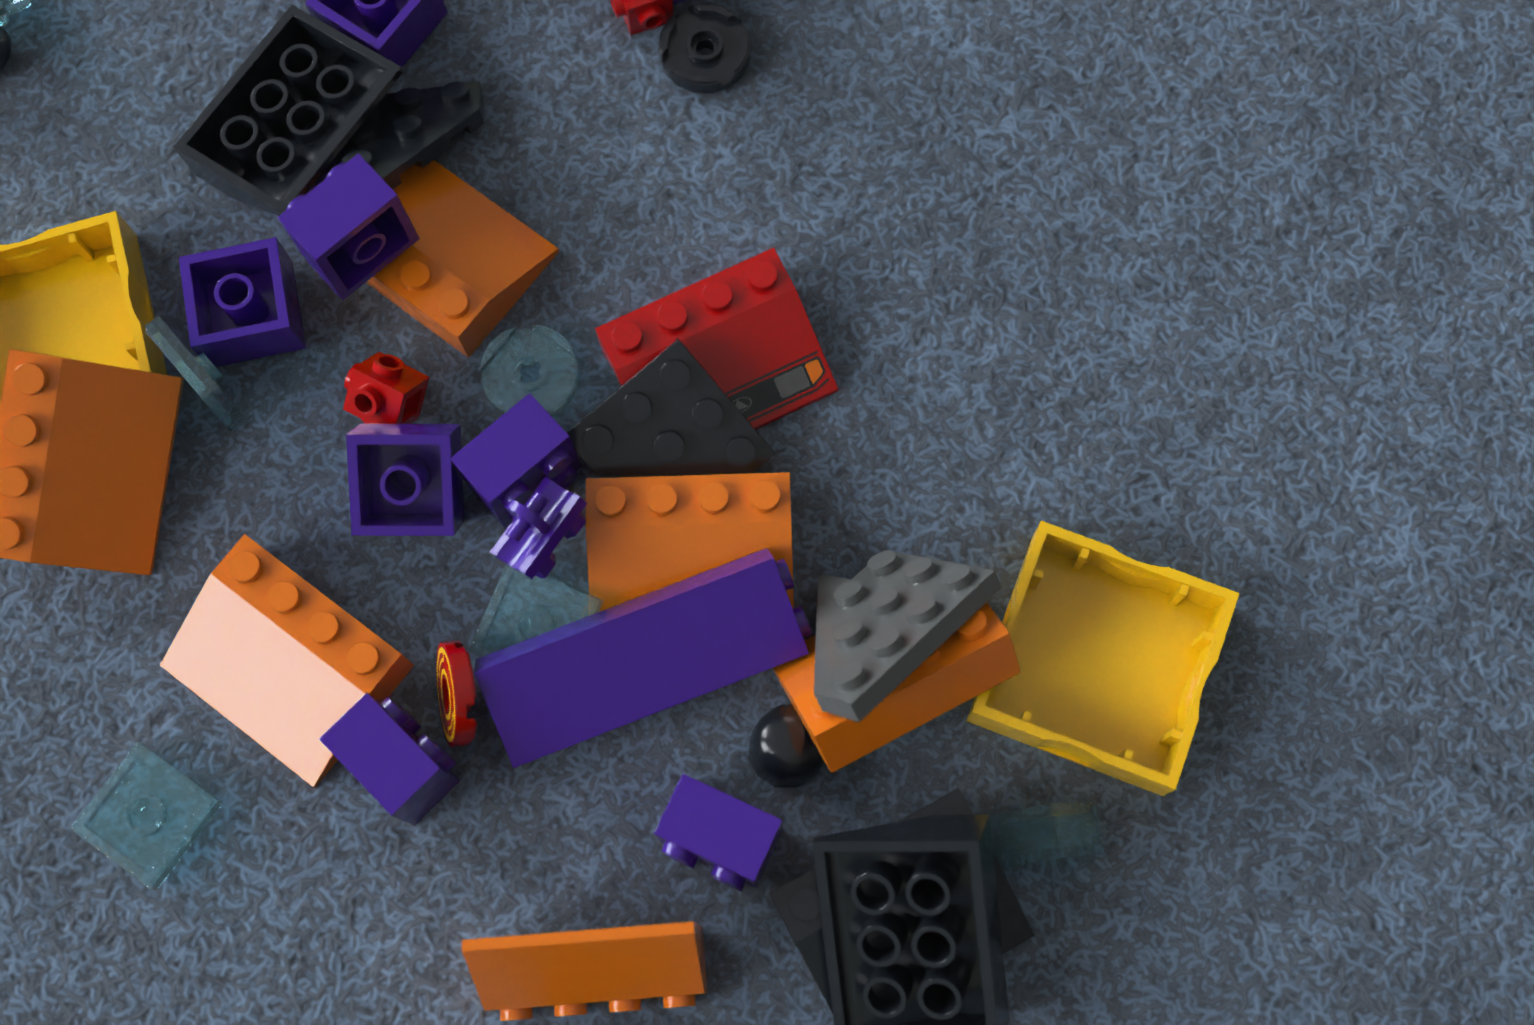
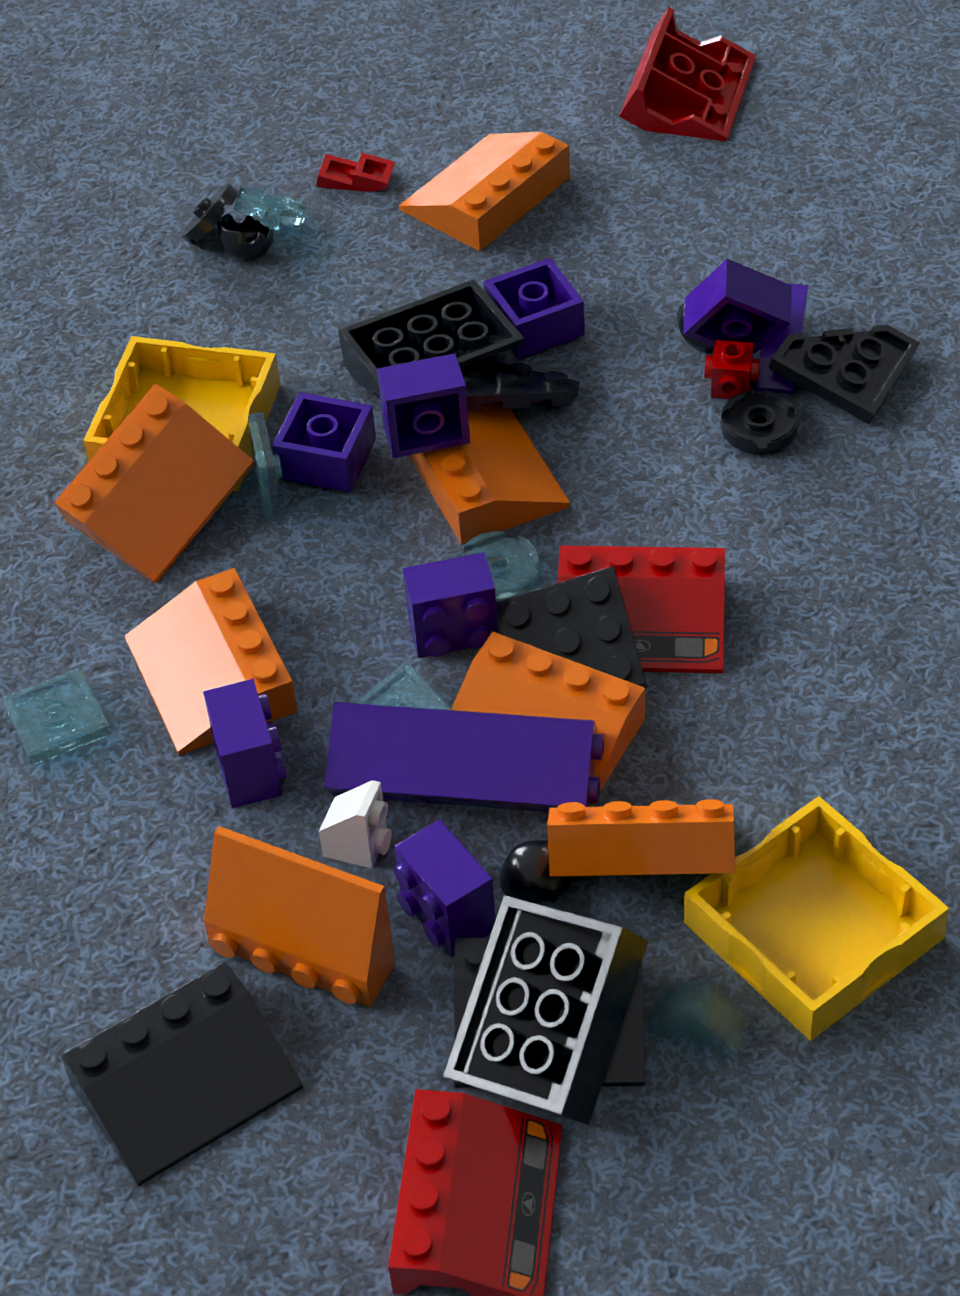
camera: 30 degrees right, 25 degrees down
(385, 390) = (387, 532): red brick -> none
(404, 480) = (363, 582): dark purple brick -> none
(455, 693) = (314, 724): red tile -> none
(539, 529) = (436, 634): dark purple hips -> none
(575, 797) = (357, 826): none -> white slope
(888, 624) = (654, 787): dark grey wing -> none

